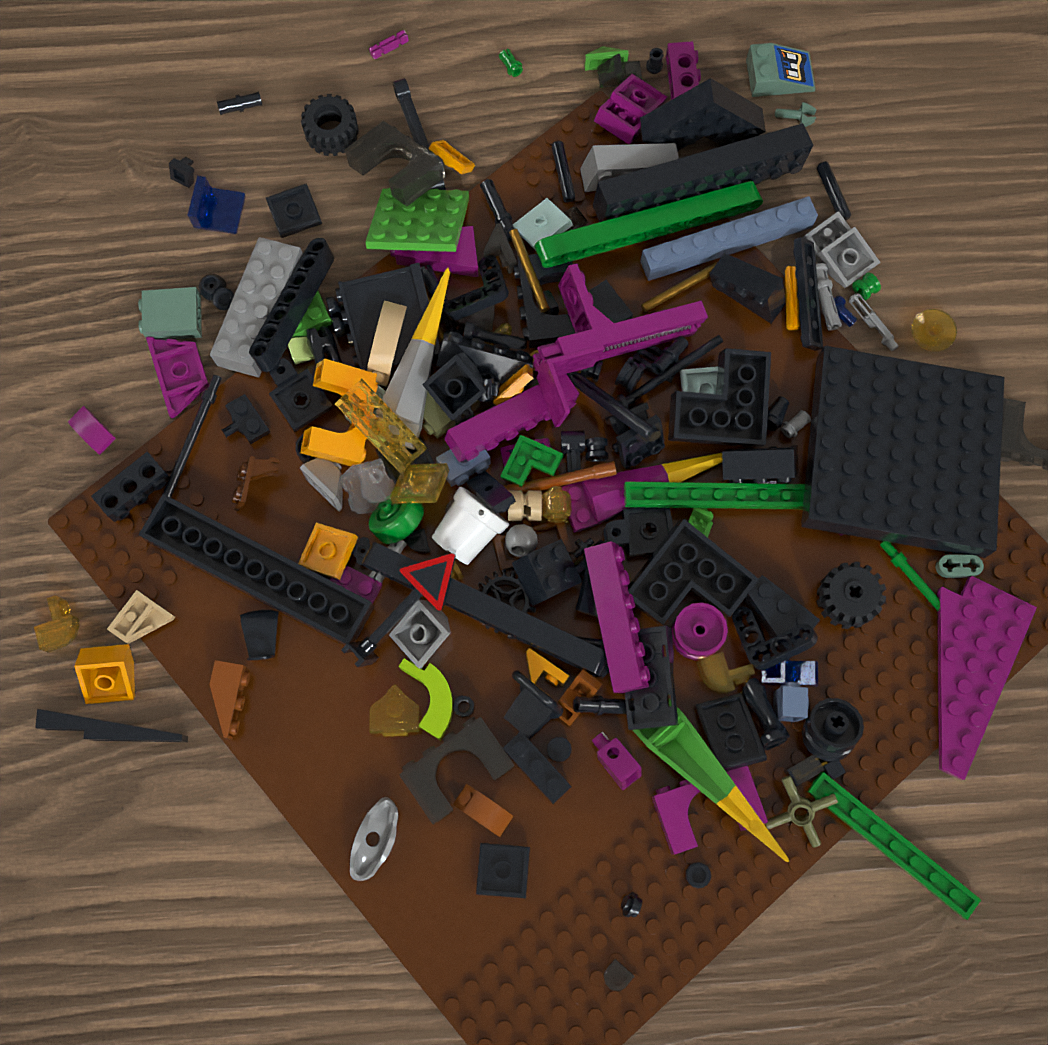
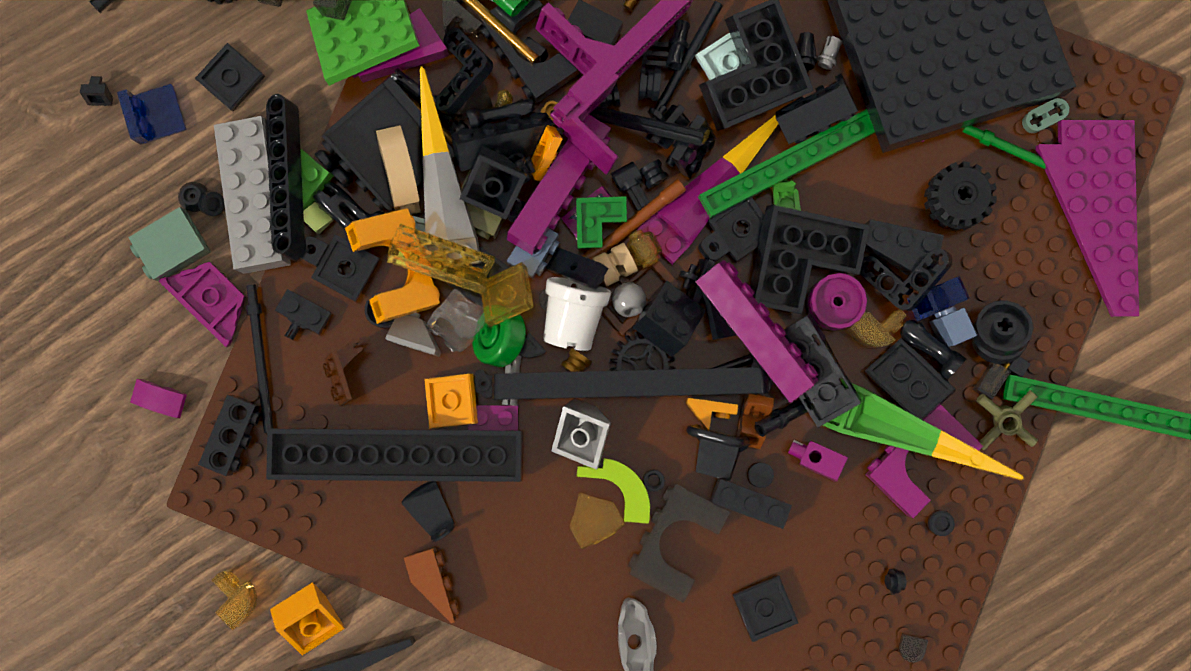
camera: 25 degrees left, 10 degrees up
(139, 618) = (308, 554): tan wing -> none
(430, 580) = (566, 384): black piece -> none
(483, 810) = (720, 566): dark orange brick -> none

